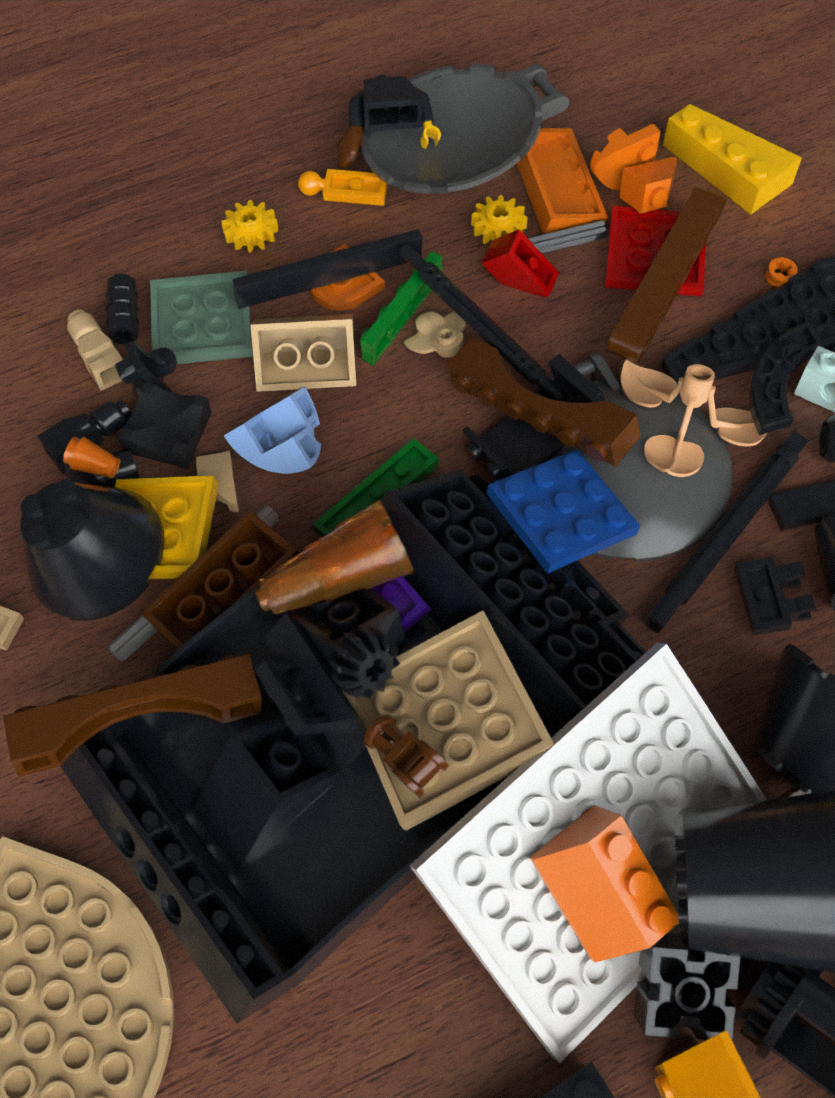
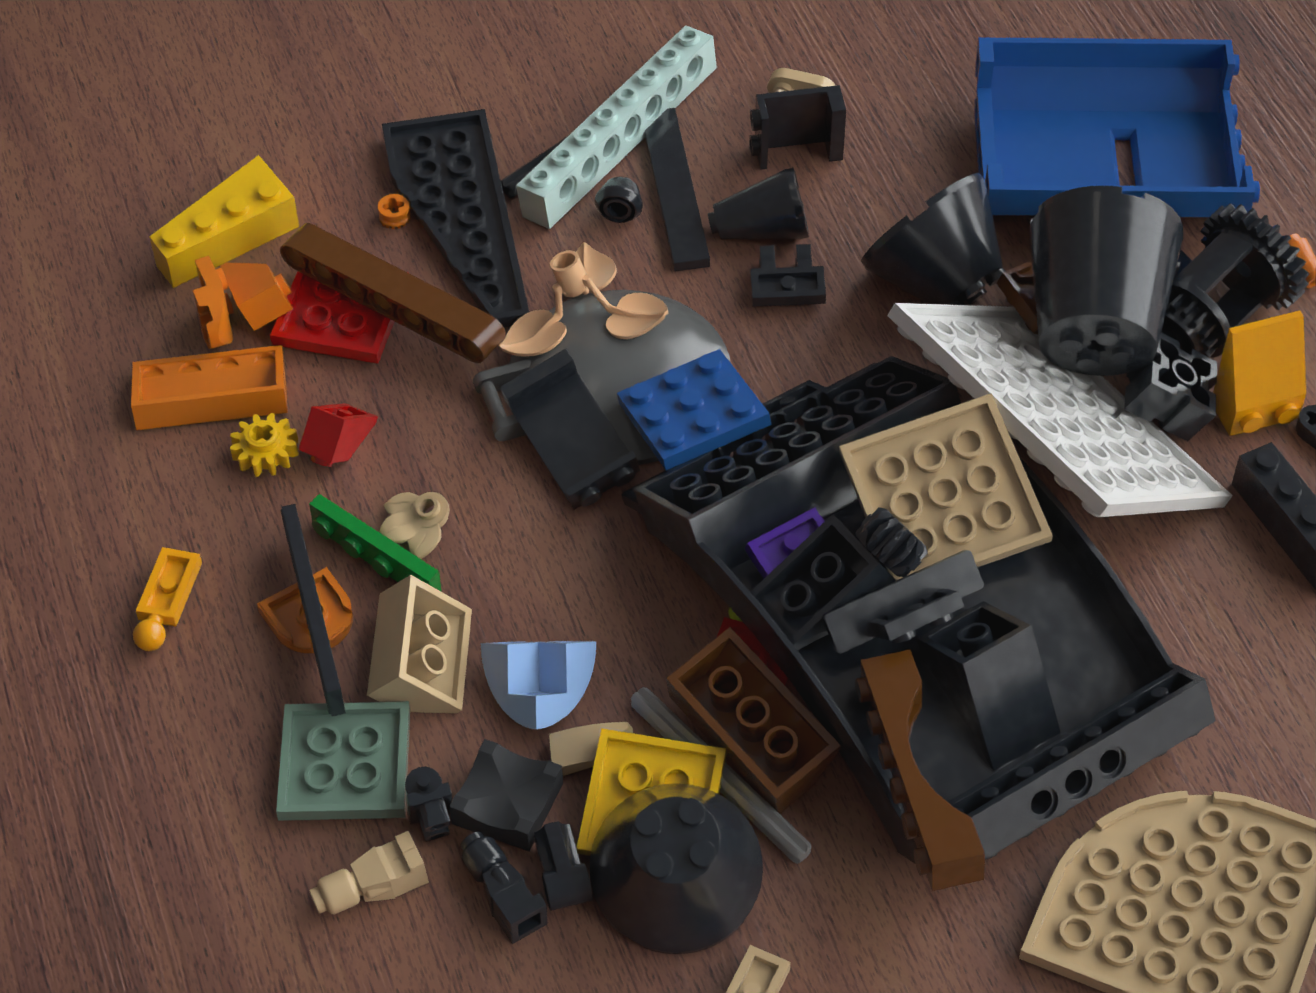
camera: 85 degrees left, 10 degrees down
(90, 458) = (560, 855): orange cone -> none
(122, 309) = (312, 847): black axle -> none
(250, 226) = (208, 701): yellow gear -> none
(353, 556) = (771, 543): clear orange cone -> none
(382, 106) = (69, 528): black torso -> none
(404, 468) = (630, 593): green plate -> none
(408, 757) = (991, 513): reddish brown connector -> none
(482, 323) = (426, 464): black axle -> none
(484, 125) = (116, 463): dark grey dish -> none
(570, 236) = (298, 387): axle -> none
(594, 427) = (494, 471): reddish brown arch -> none
(605, 886) = (1100, 401): orange slope -> none
(726, 531) = (711, 303): black piece -> none
(770, 379) = (521, 226): black tile -> none

